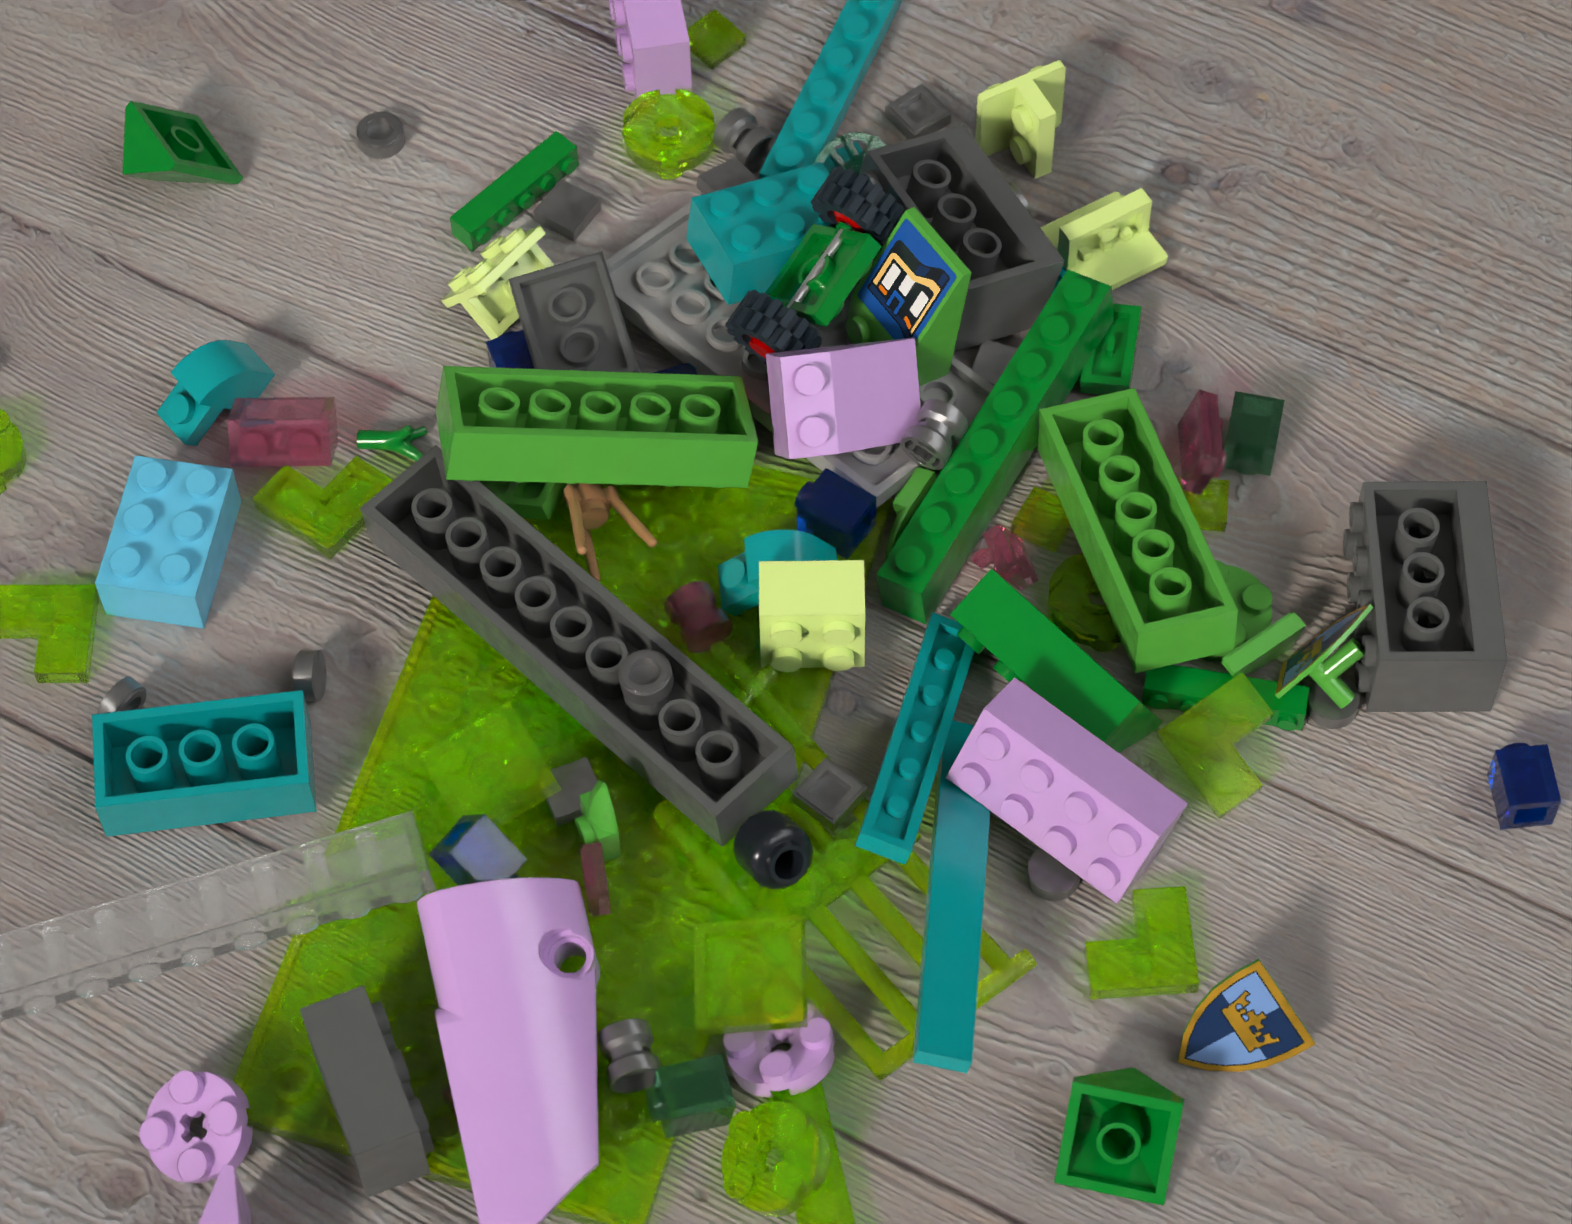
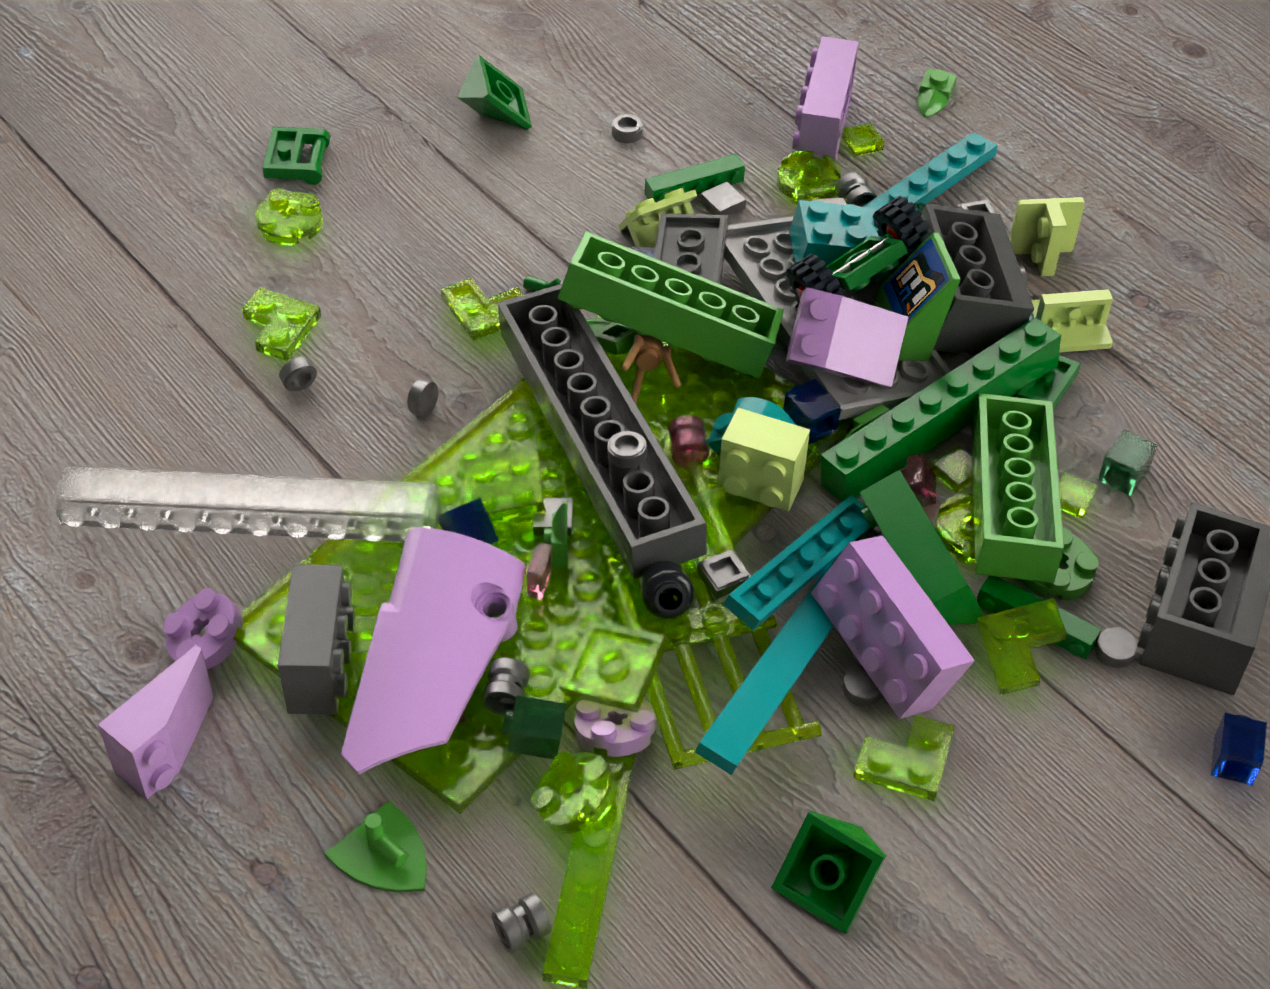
camera: 20 degrees right, 10 degrees down
(168, 542) = (376, 296): medium azure brick -> none
(203, 763) = (326, 421): teal brick -> none
(211, 382) = (449, 215): teal brick -> none
(282, 431) = (478, 258): clear pink brick -> none
(932, 437) = (901, 381): flat silver wheel -> none
(1201, 442) = (1087, 453): clear pink plate -> none
(1243, 1025) = (956, 828): shield -> none
(1264, 646) = (1080, 592): bright green tile -> none
(1311, 657) = (1117, 620): shield -> none

